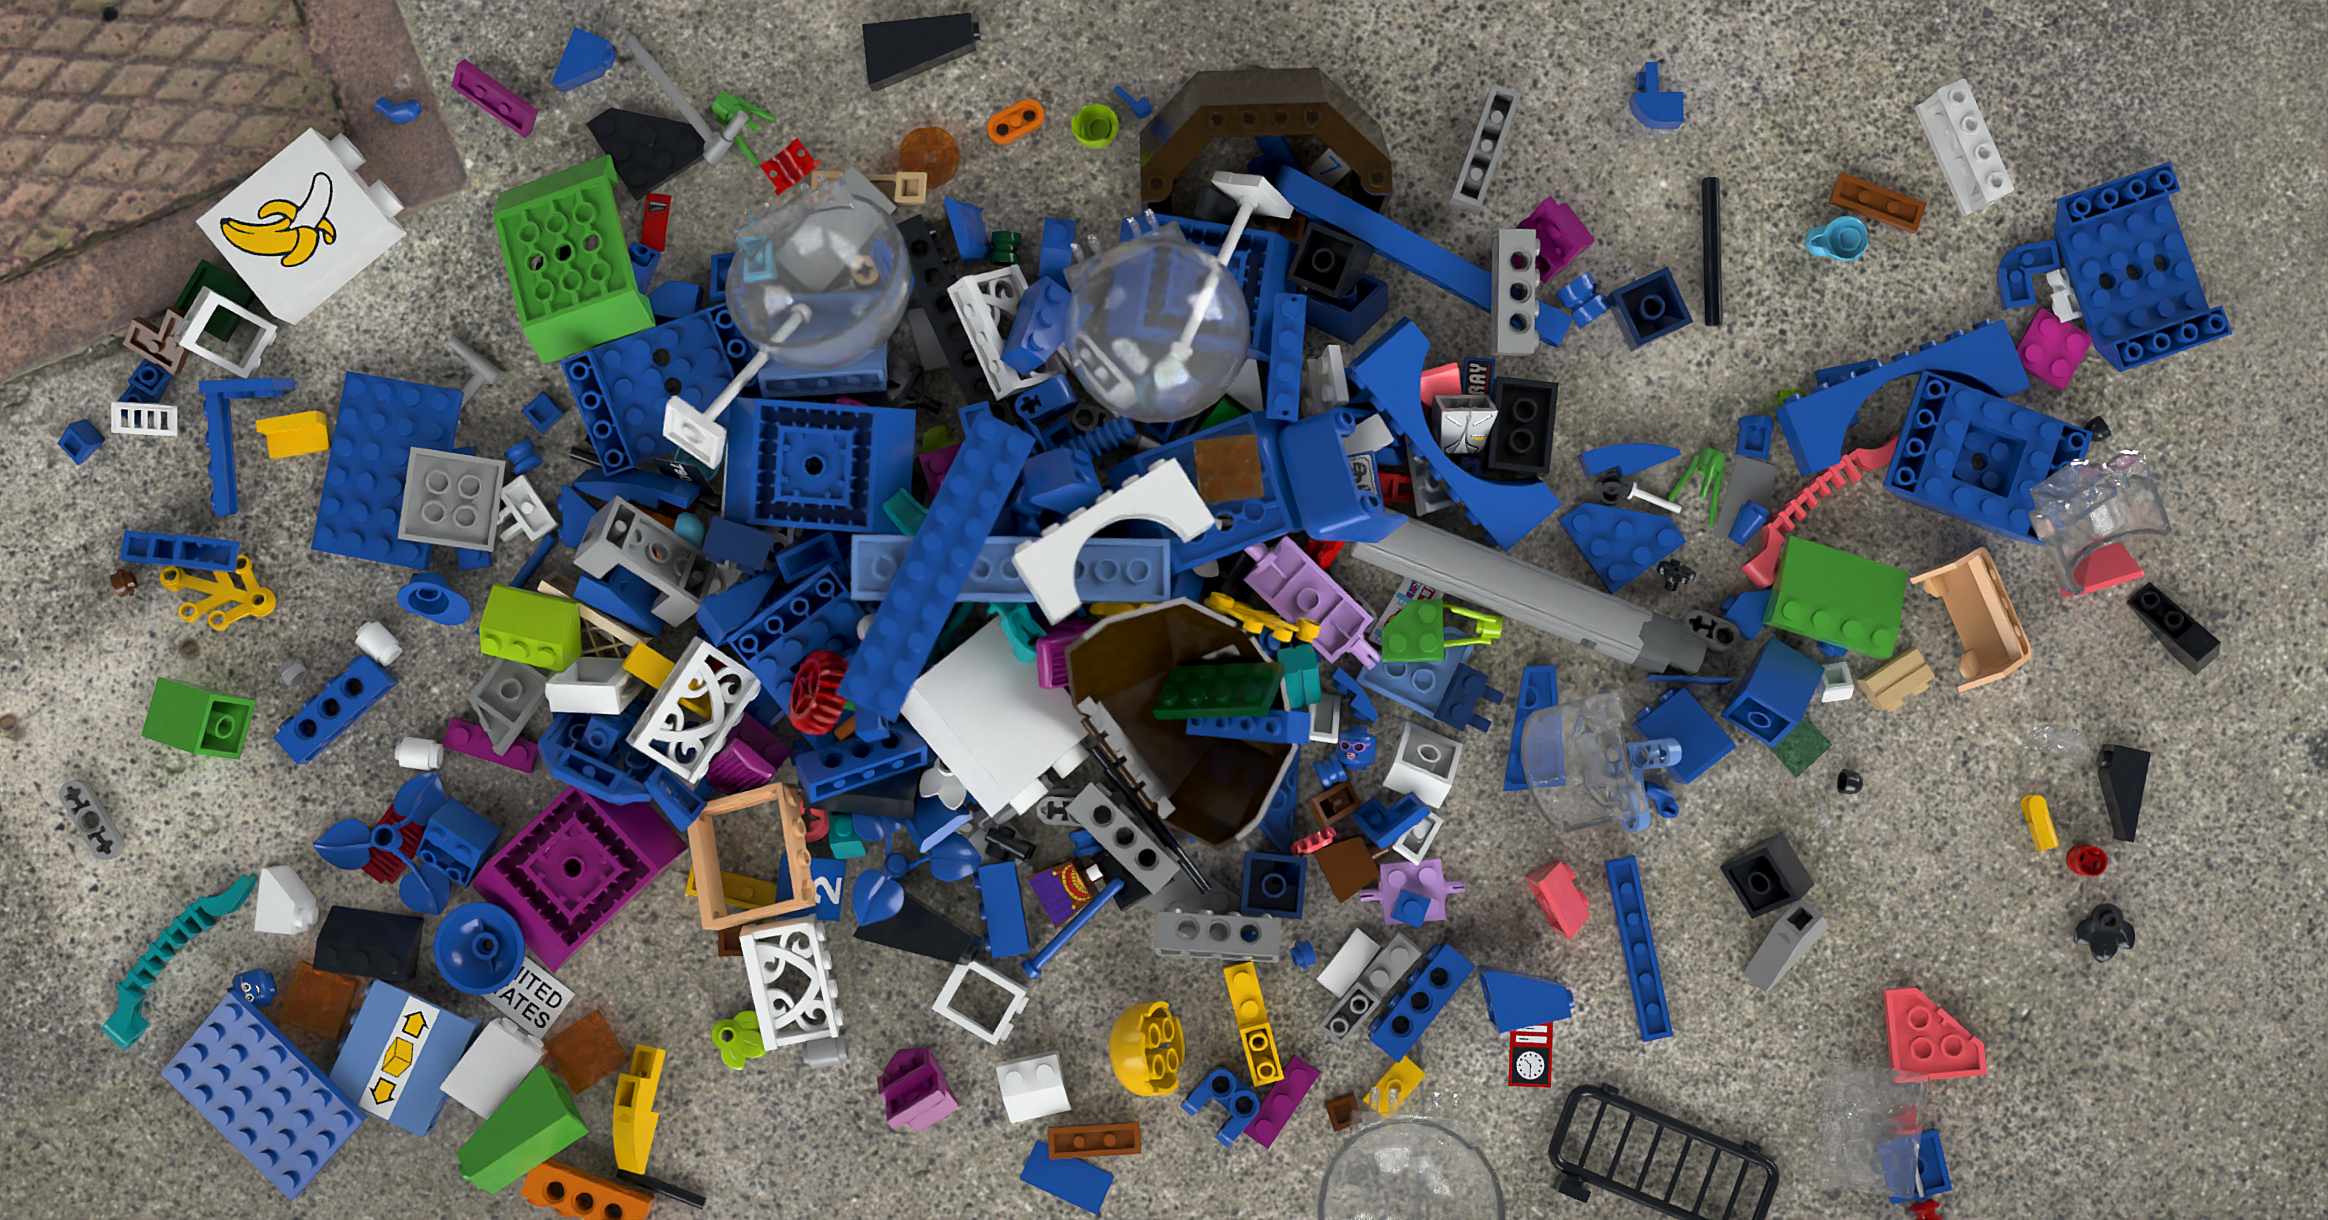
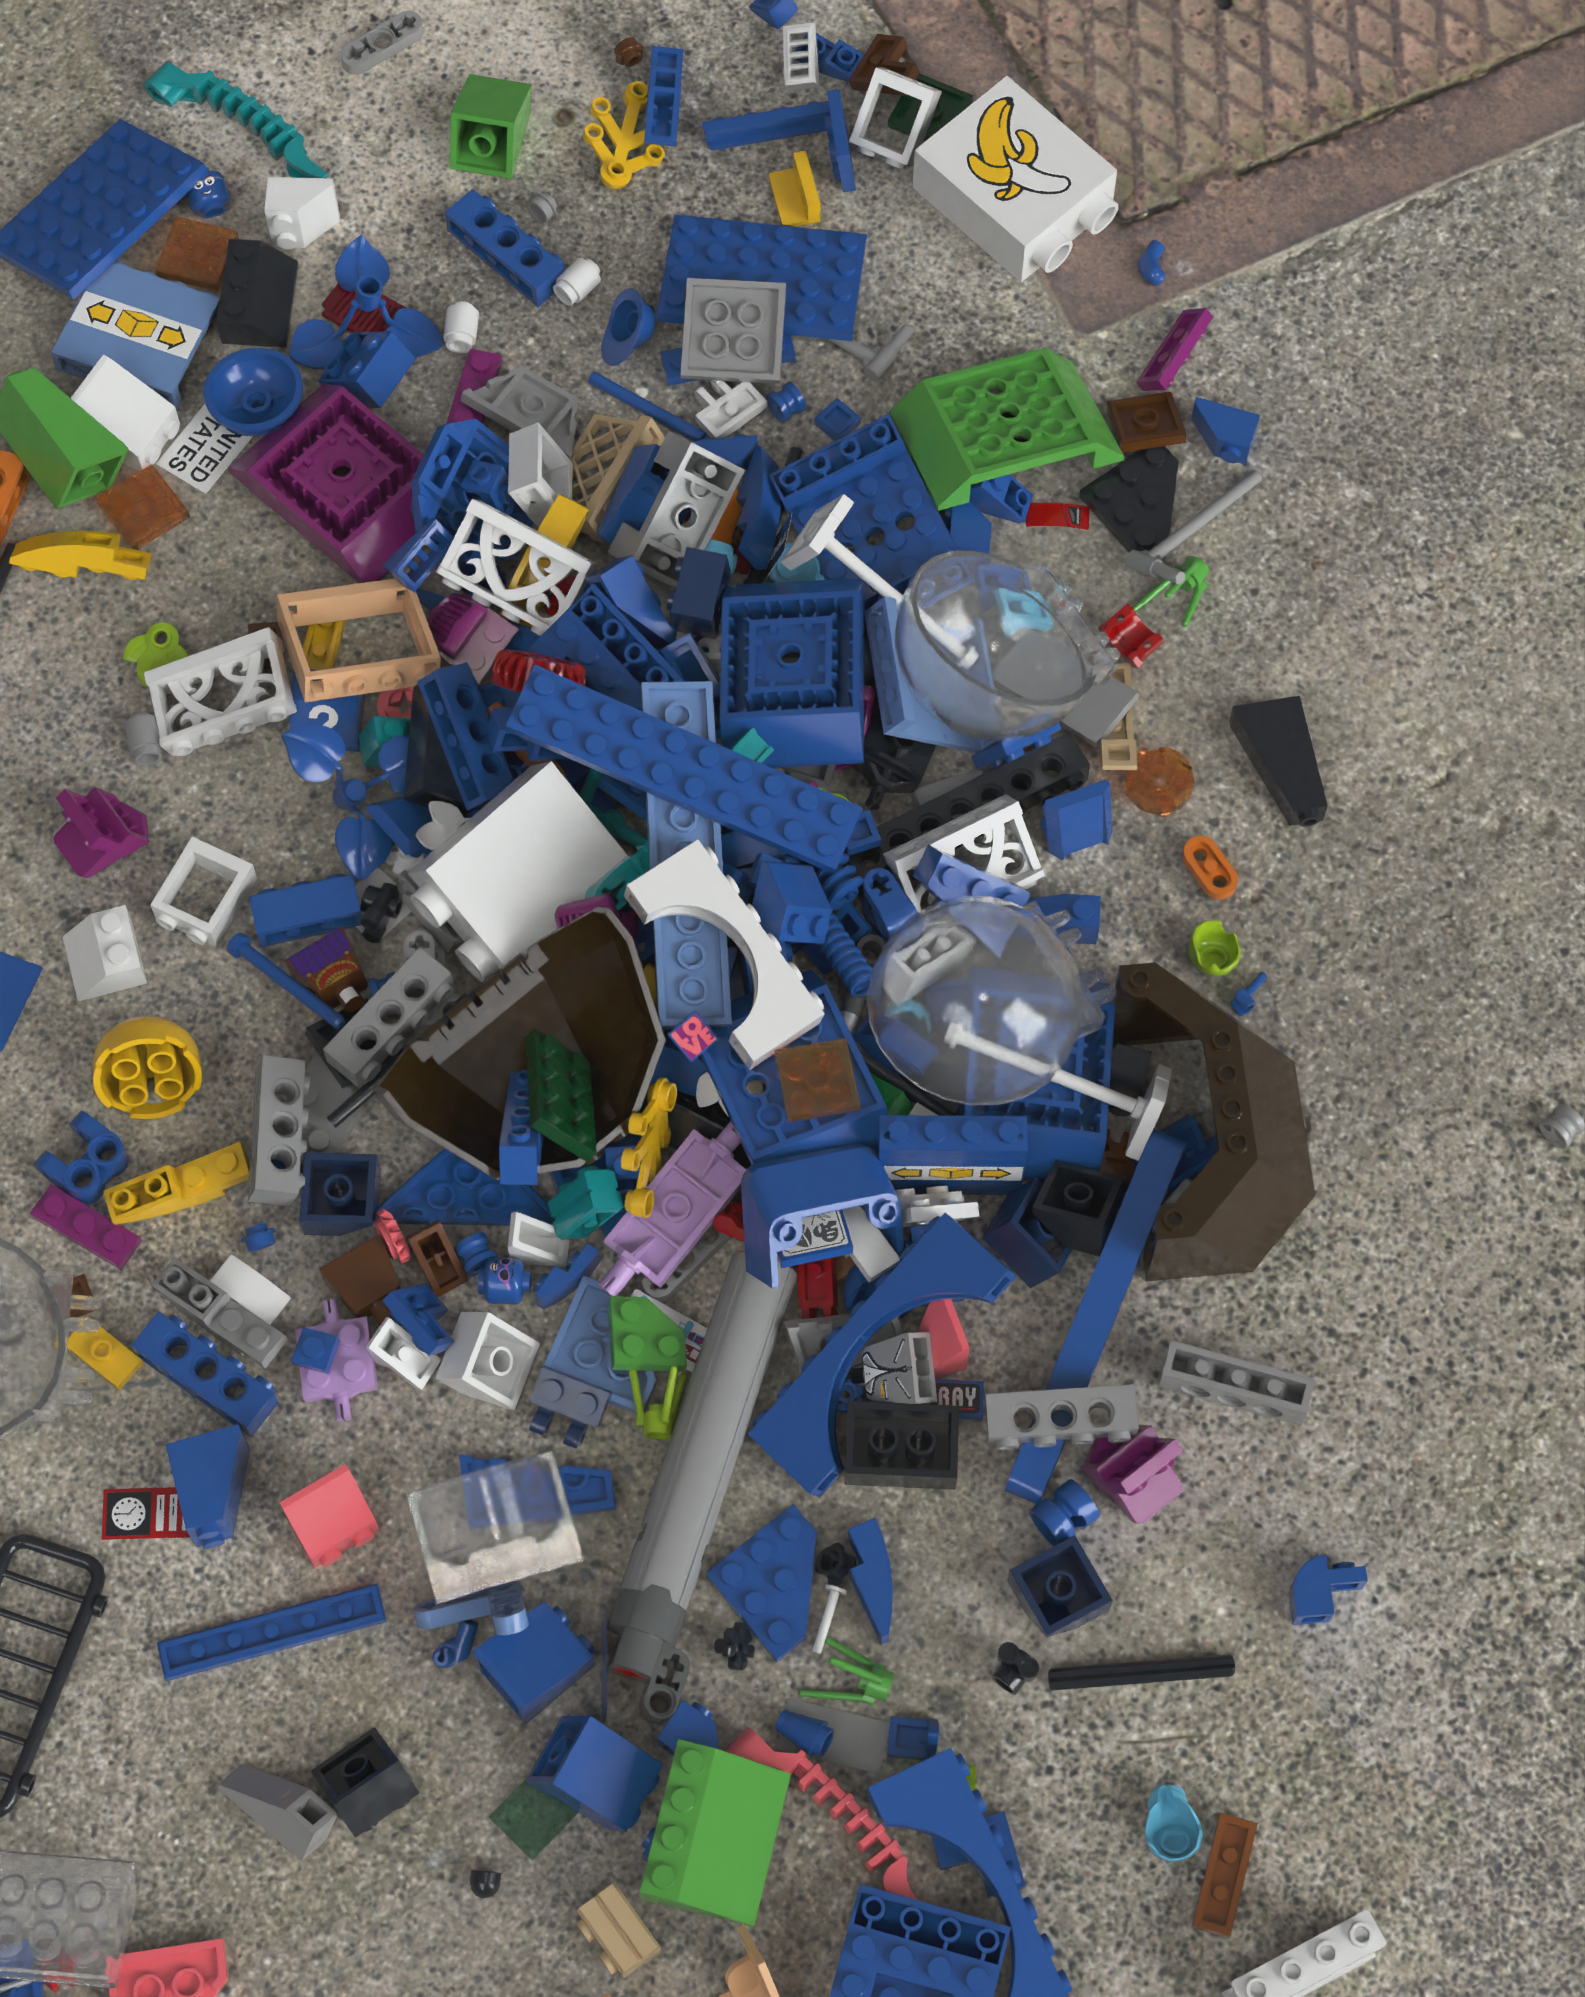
camera: 85 degrees right, 20 degrees down
(531, 628) = (598, 414): lime slope -> none
(569, 132) = (1146, 422): none -> reddish brown plate
(923, 932) = (281, 817): black slope -> none
(1005, 246) = (1062, 865): dark green wheel -> none
(1094, 1140) = (42, 1023): dark orange plate -> none
(1181, 573) = (692, 1036): none -> tile
(1710, 350) = (1015, 1668): none -> black plate
(1835, 683) = (611, 1857): white slope -> none

